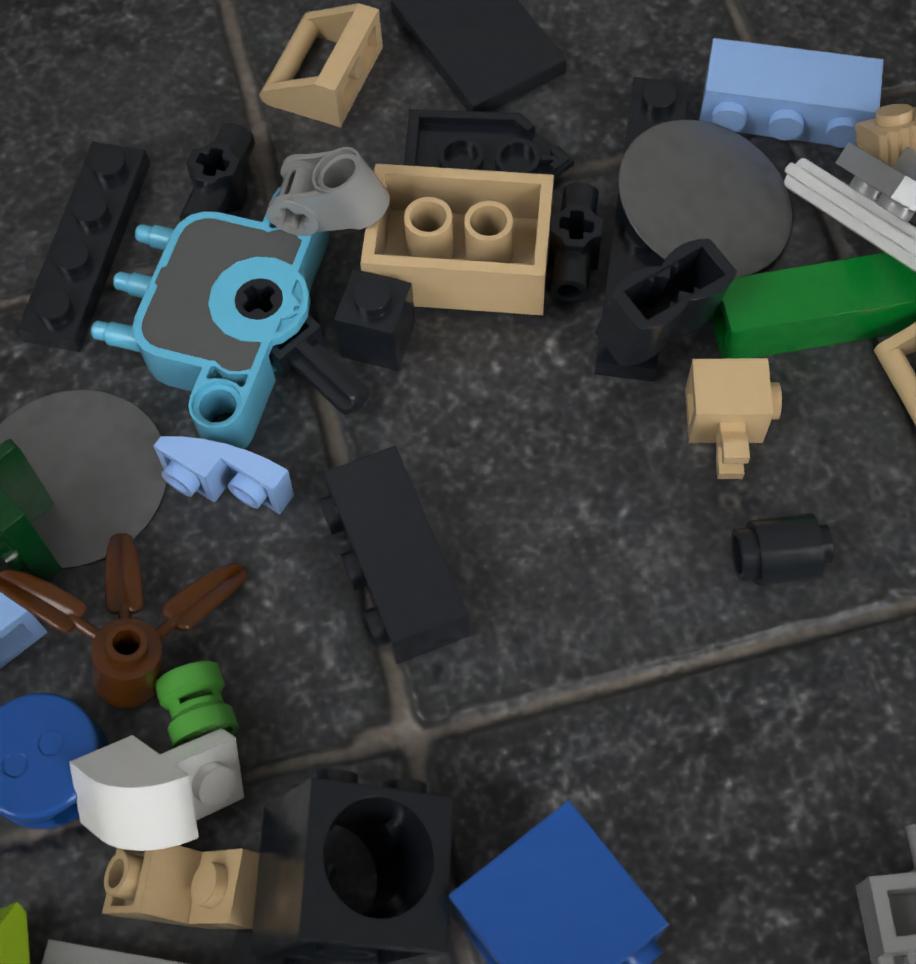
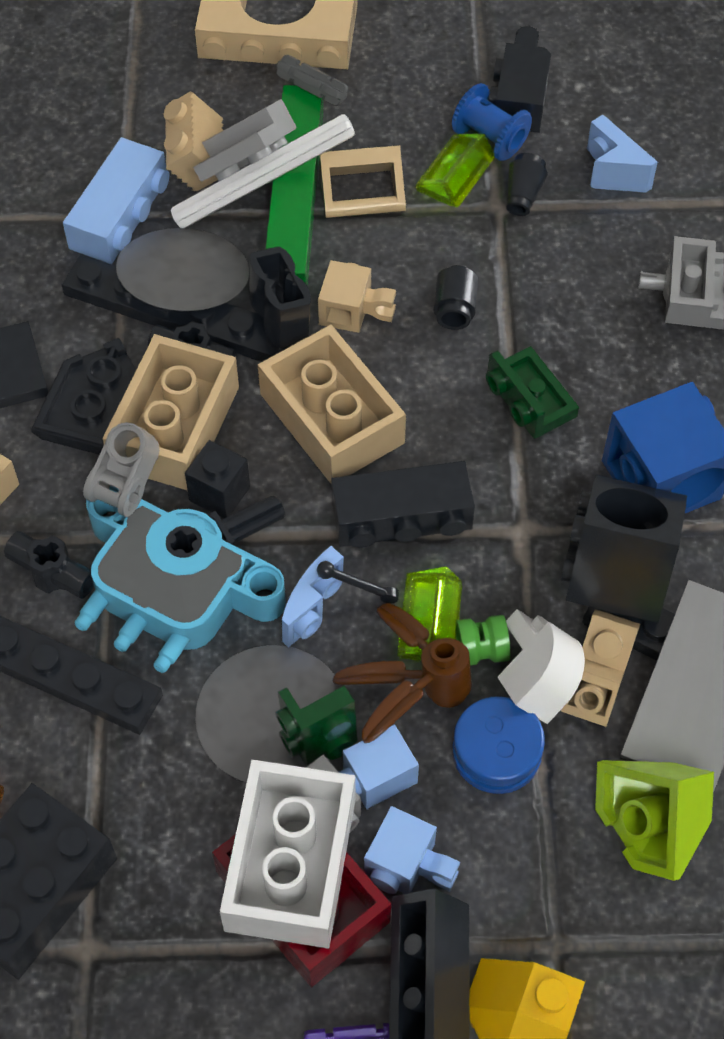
camera: 80 degrees left, 5 degrees down
(240, 470) = (387, 595): none -> black hinge
(246, 636) = (435, 602): none -> clear neon green slope
(524, 421) = (332, 403): none -> tan brick
(639, 691) = (530, 391): none -> dark green bracket

